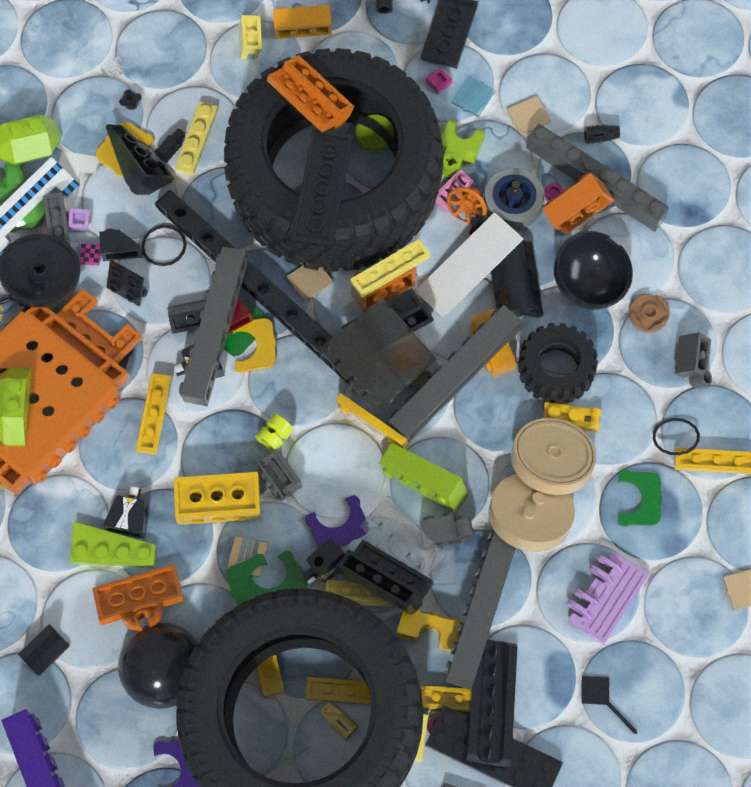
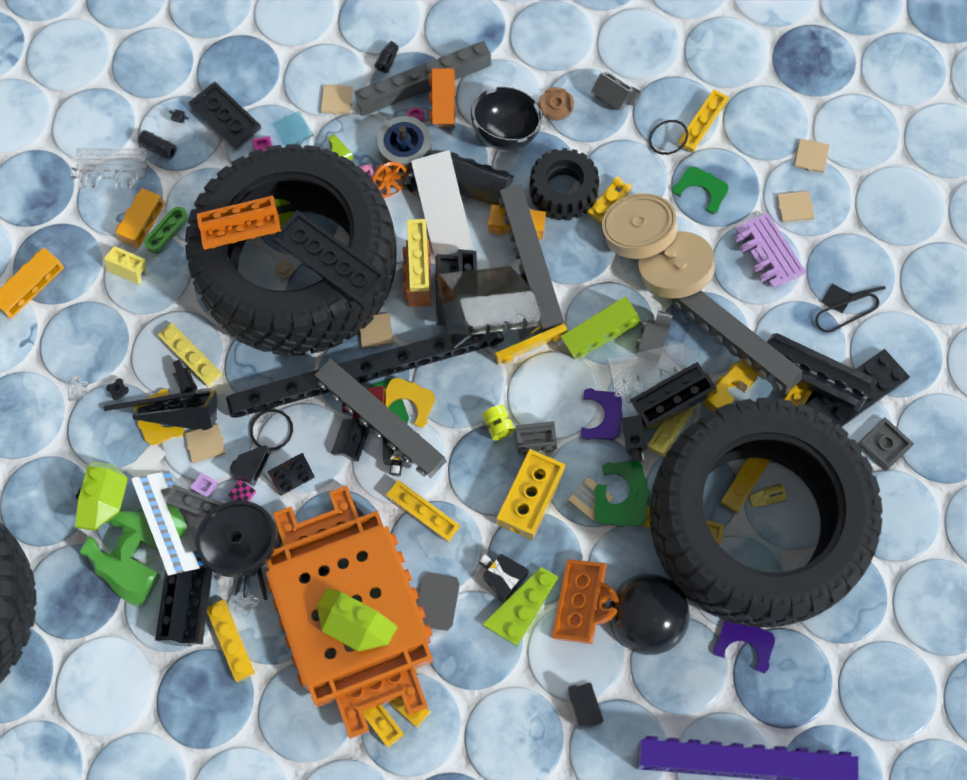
camera: 60 degrees left, 0 degrees up
(78, 473) = (439, 600): none -> dark grey piece
(120, 199) = (205, 443): none -> tan piece
(135, 133) = (149, 401): none -> black axle
(297, 45) = (170, 223): none -> bright green plate
(579, 716) = (846, 302): none -> black piece
(676, 600) = (795, 206): none -> tan piece

